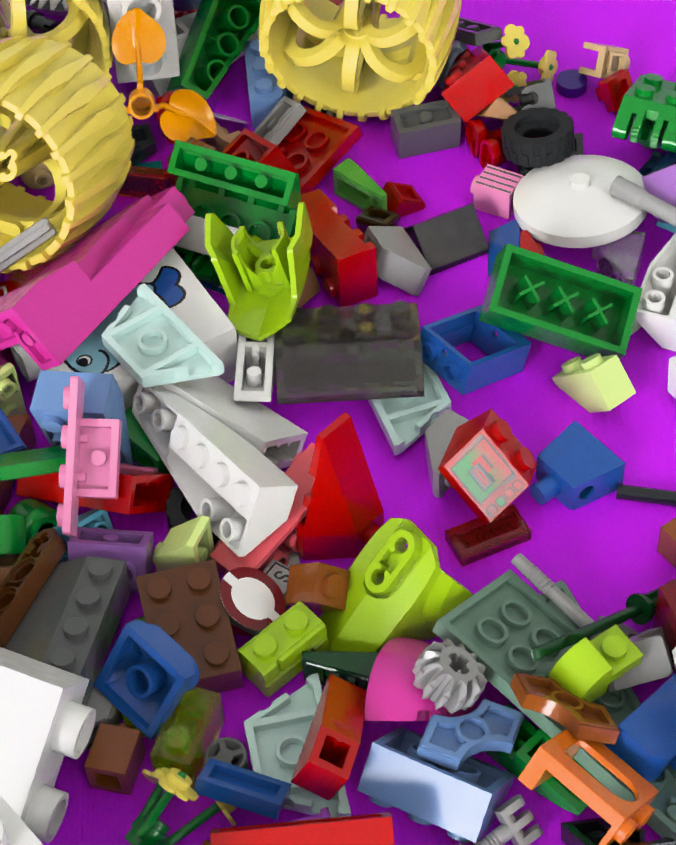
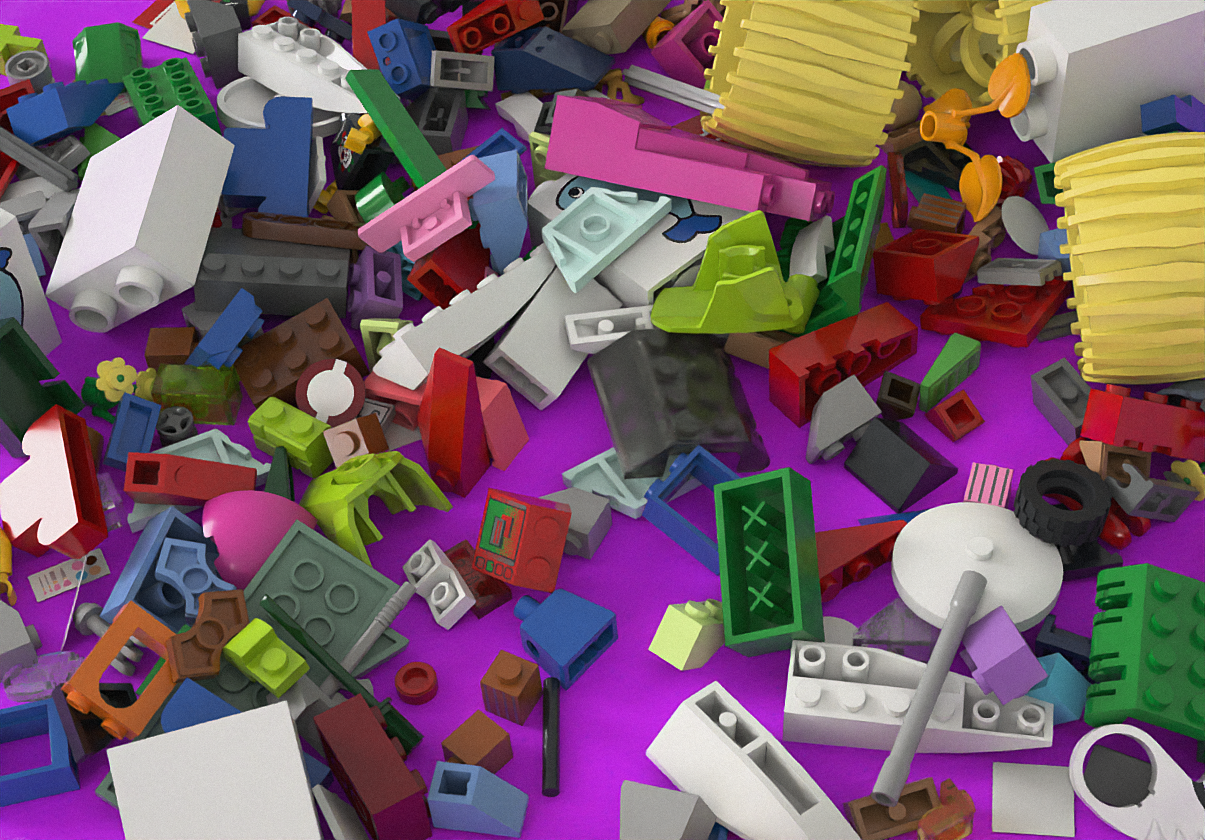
camera: 80 degrees right, 0 degrees up
(449, 676) = (236, 528): light grey gear -> none
(495, 552) = (439, 584): none -> white slope
(598, 589) = (416, 683): none -> red tile
(629, 510) = (511, 687): none -> dark orange brick

